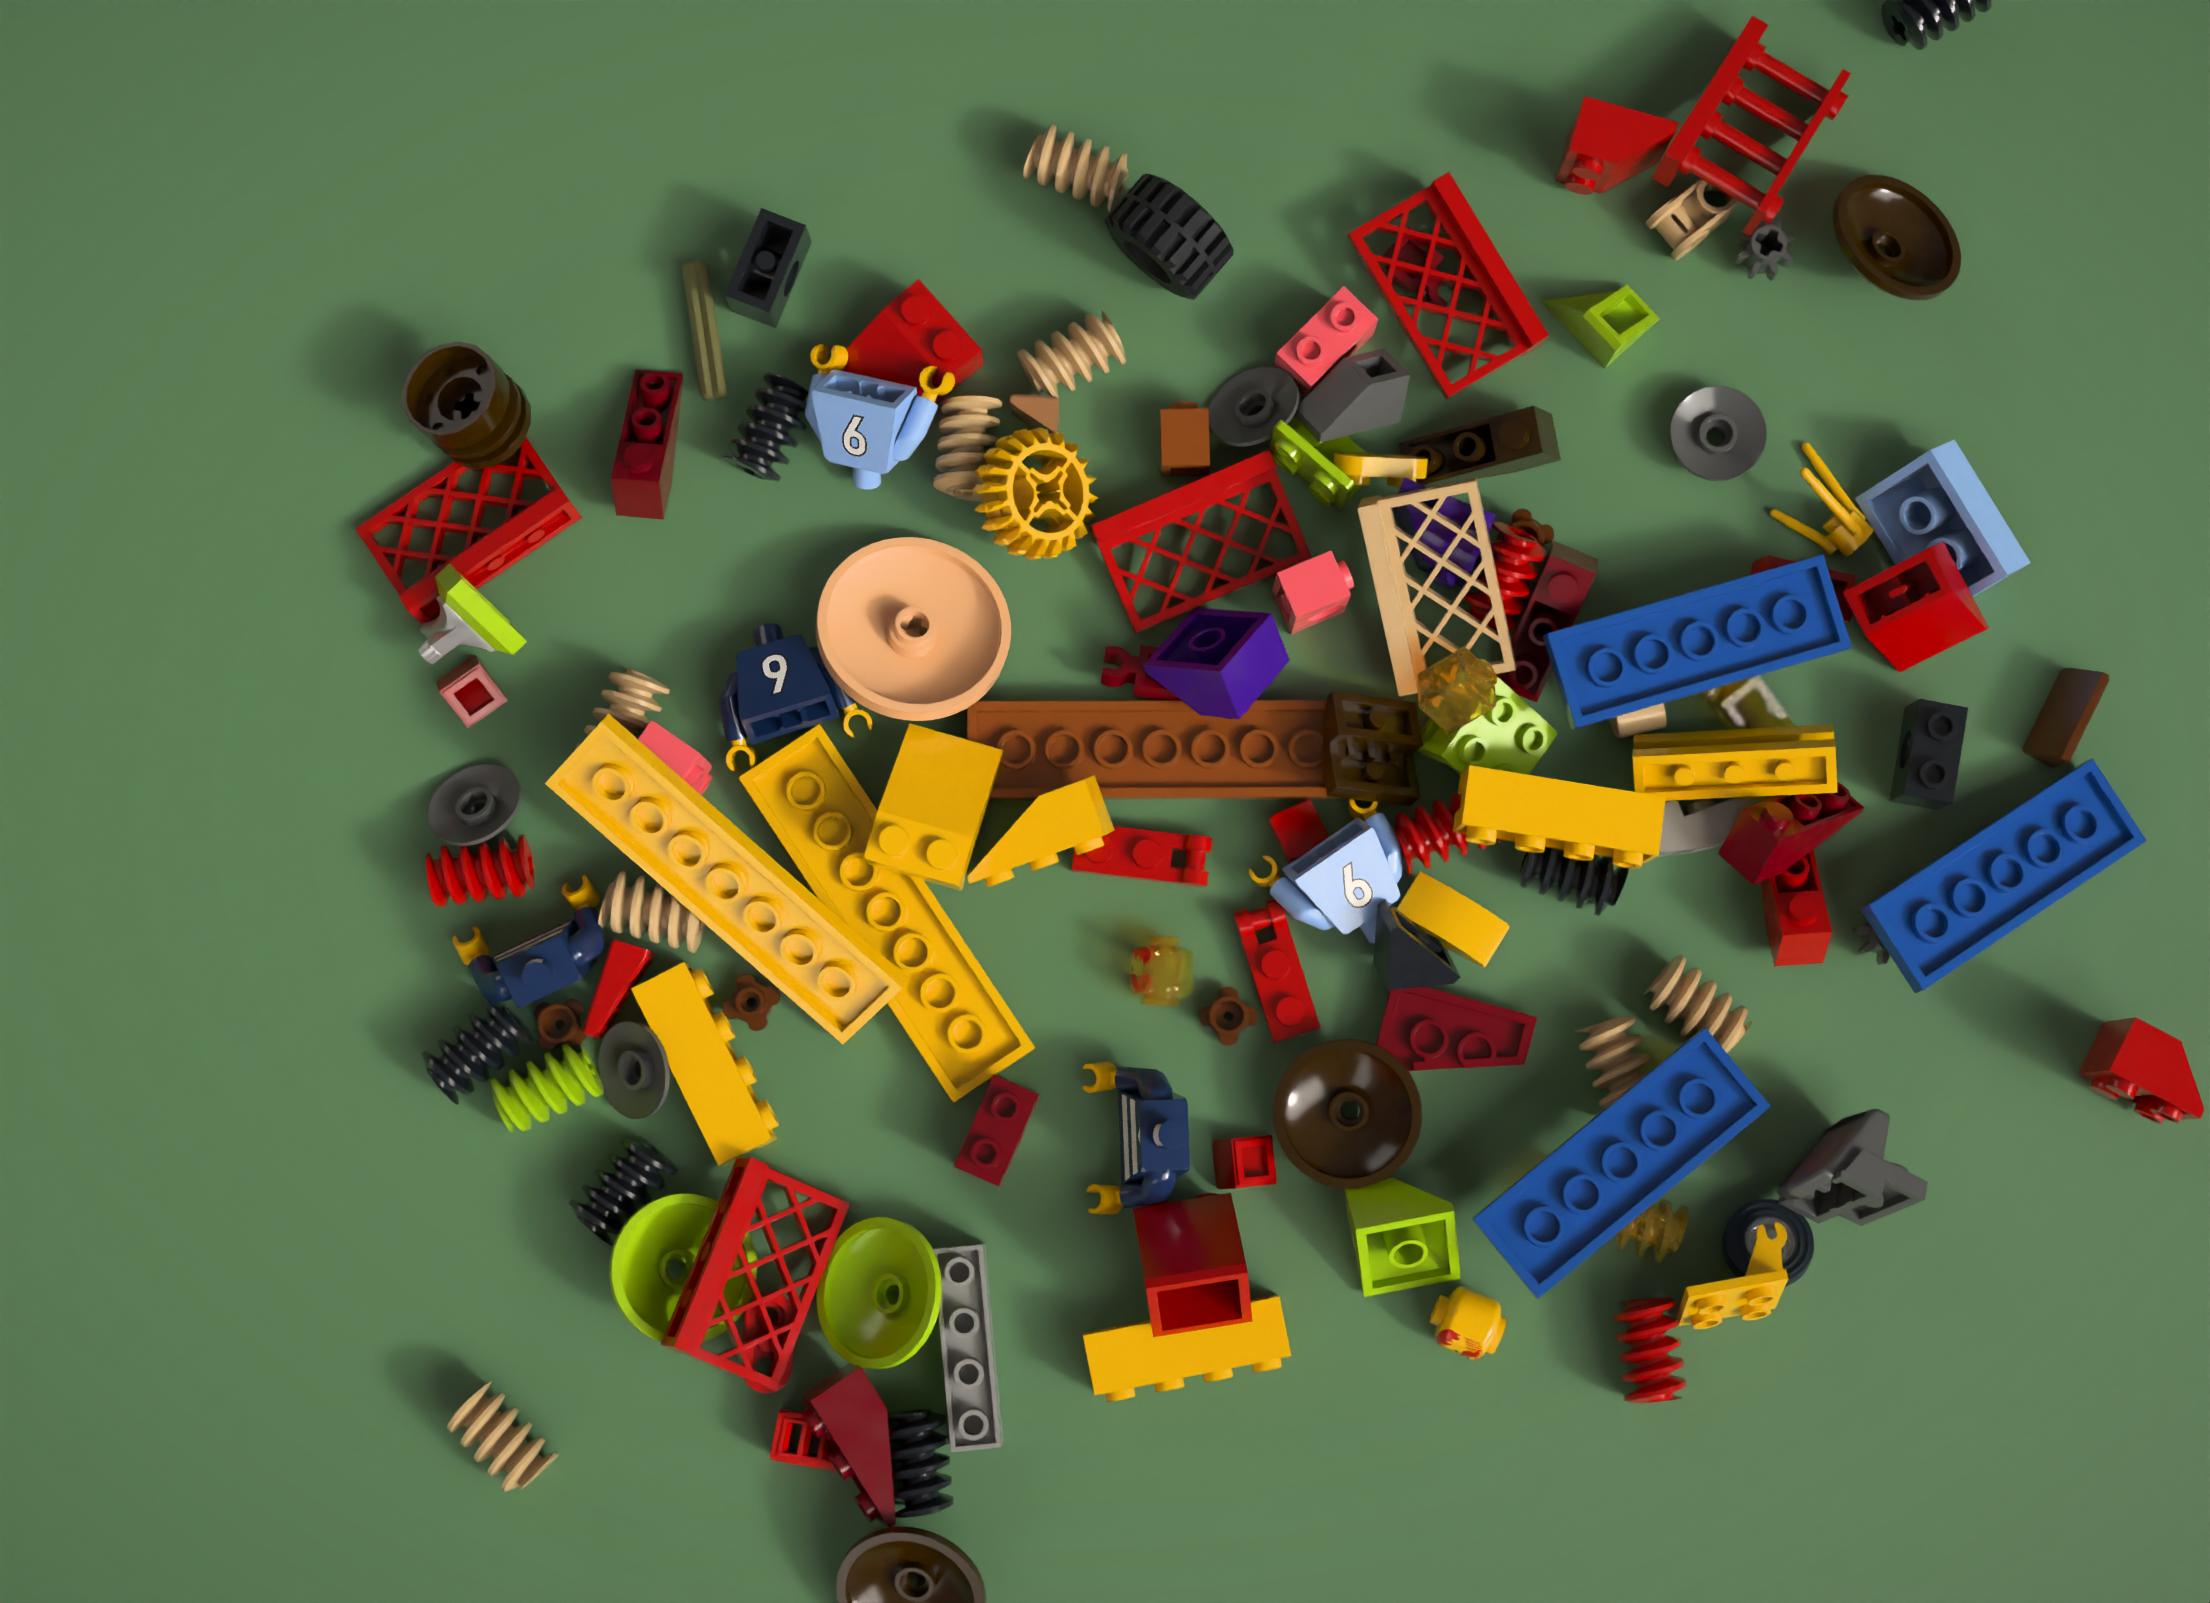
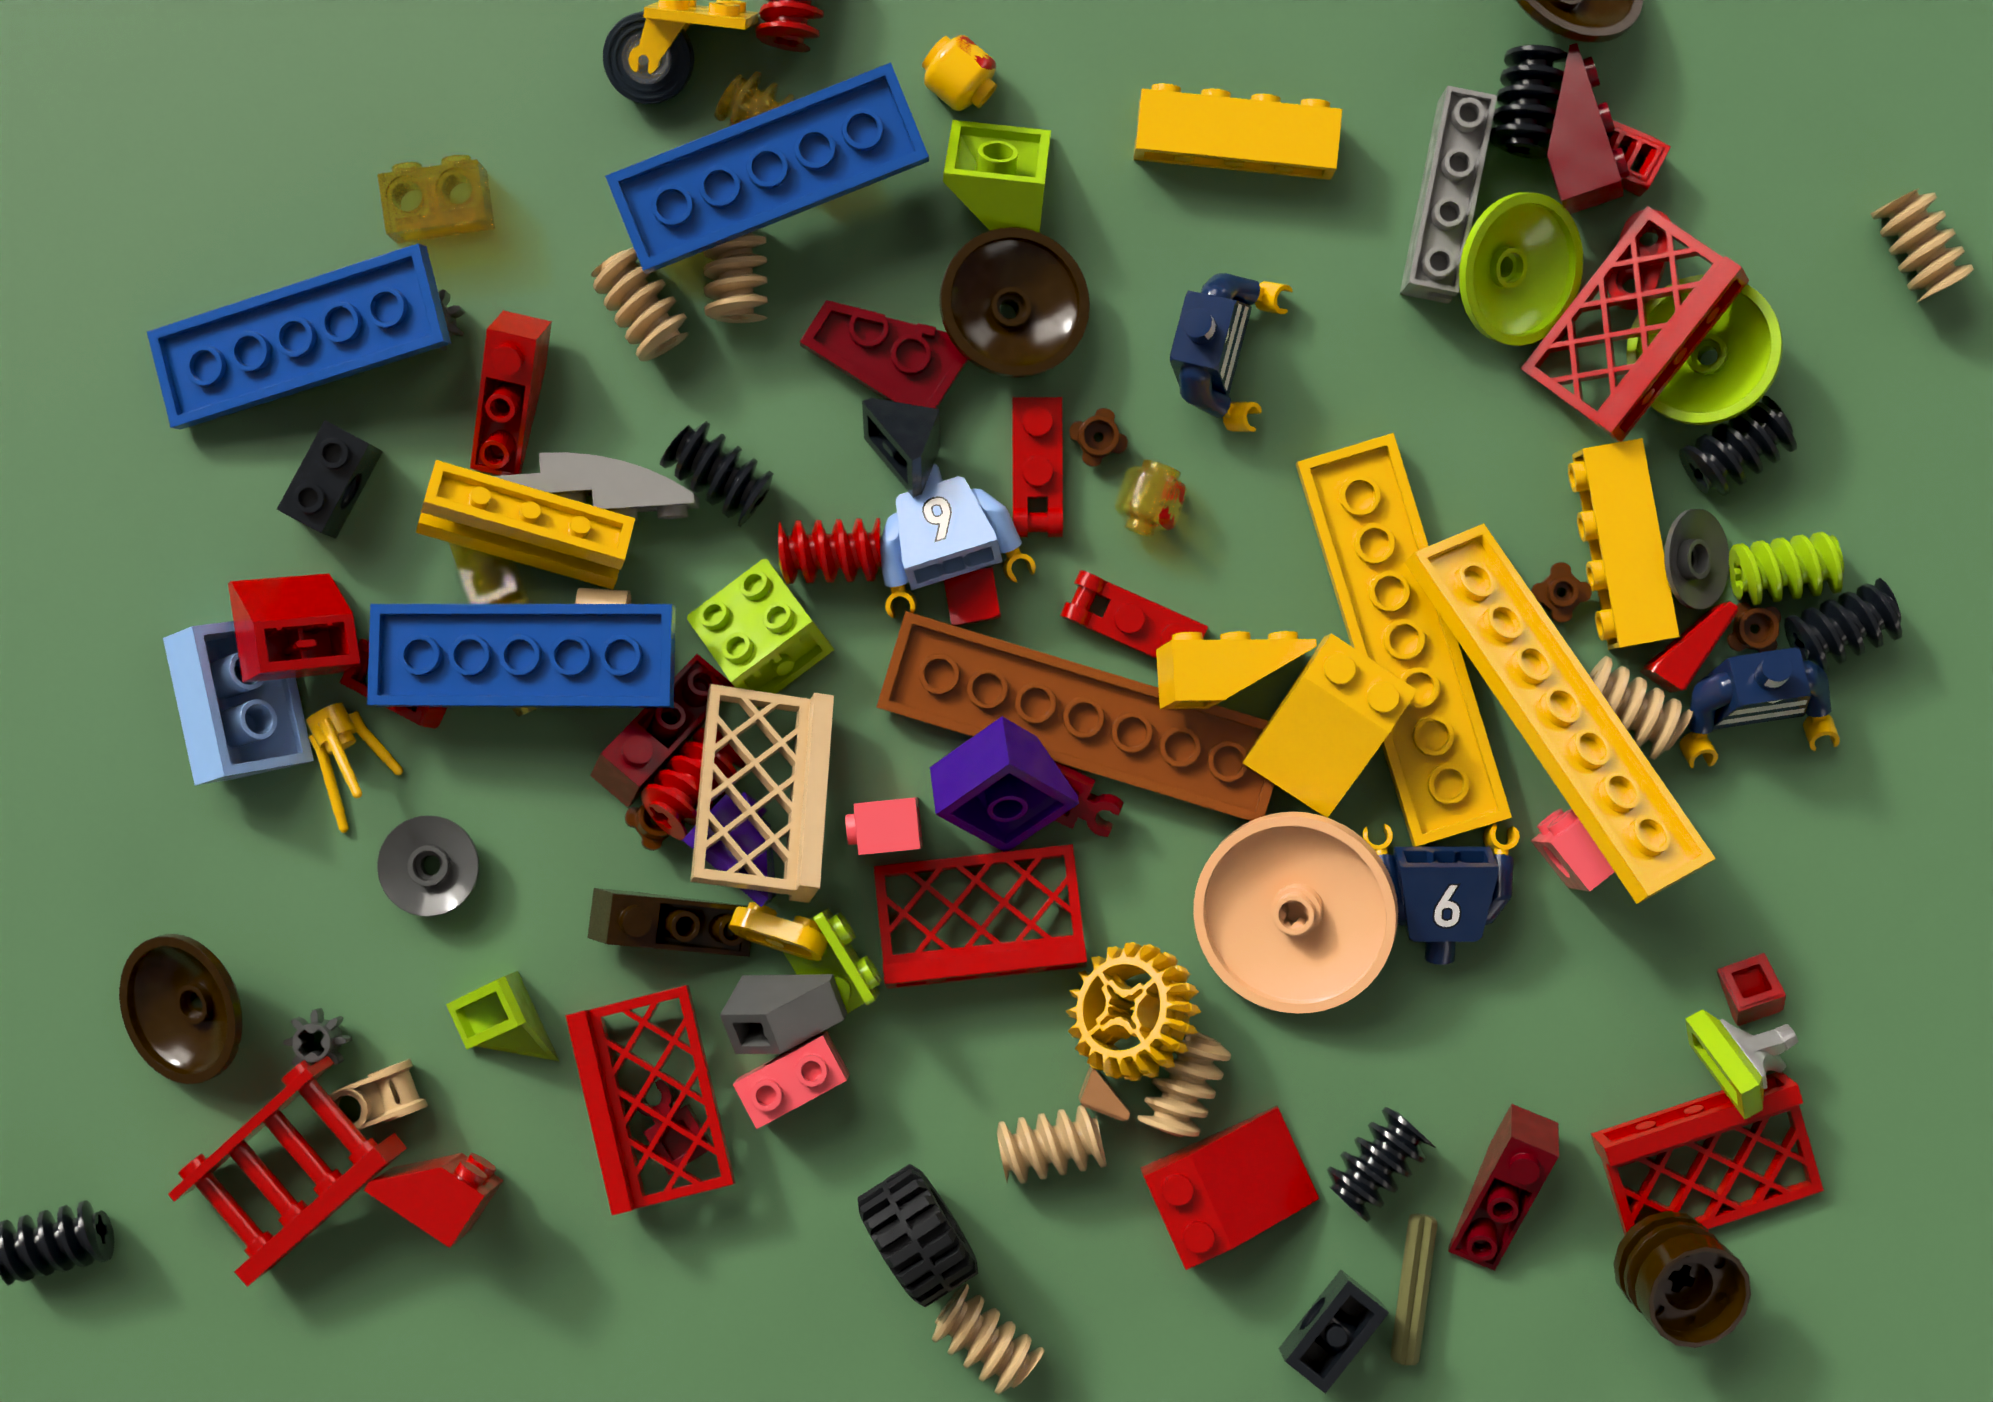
camera: 165 degrees left, 5 degrees up
(474, 804) = (1781, 870): dark grey dish -> none
(480, 872) = (1794, 798): red piece -> none
(630, 700) = (1602, 920): tan piece -> none
(868, 419) = (1281, 1140): light blue torso -> none
(997, 1131) = (1359, 391): dark red brick -> none
(1184, 440) = (964, 1024): dark orange brick -> none
(1193, 1264) = (1211, 203): red slope -> none
(1244, 1162) = (1126, 292): red slope -> none
(1252, 405) = (884, 1036): dark grey dish -> none
(1371, 748) = (877, 653): dark brown slope -> none
(1453, 919) = (850, 462): yellow slope -> none
(1457, 689) = (776, 680): clear yellow brick -> none
(1559, 815) = (715, 522): yellow brick -> none
(1784, 830) = (501, 442): dark red slope -> none
(1849, 1176) = (550, 98): dark grey piece -> none
(1917, 1038) = (435, 214): none -> clear yellow brick
(2065, 715) = (181, 478): reddish brown slope -> none
(2145, 1068) = (231, 107): red slope -> none

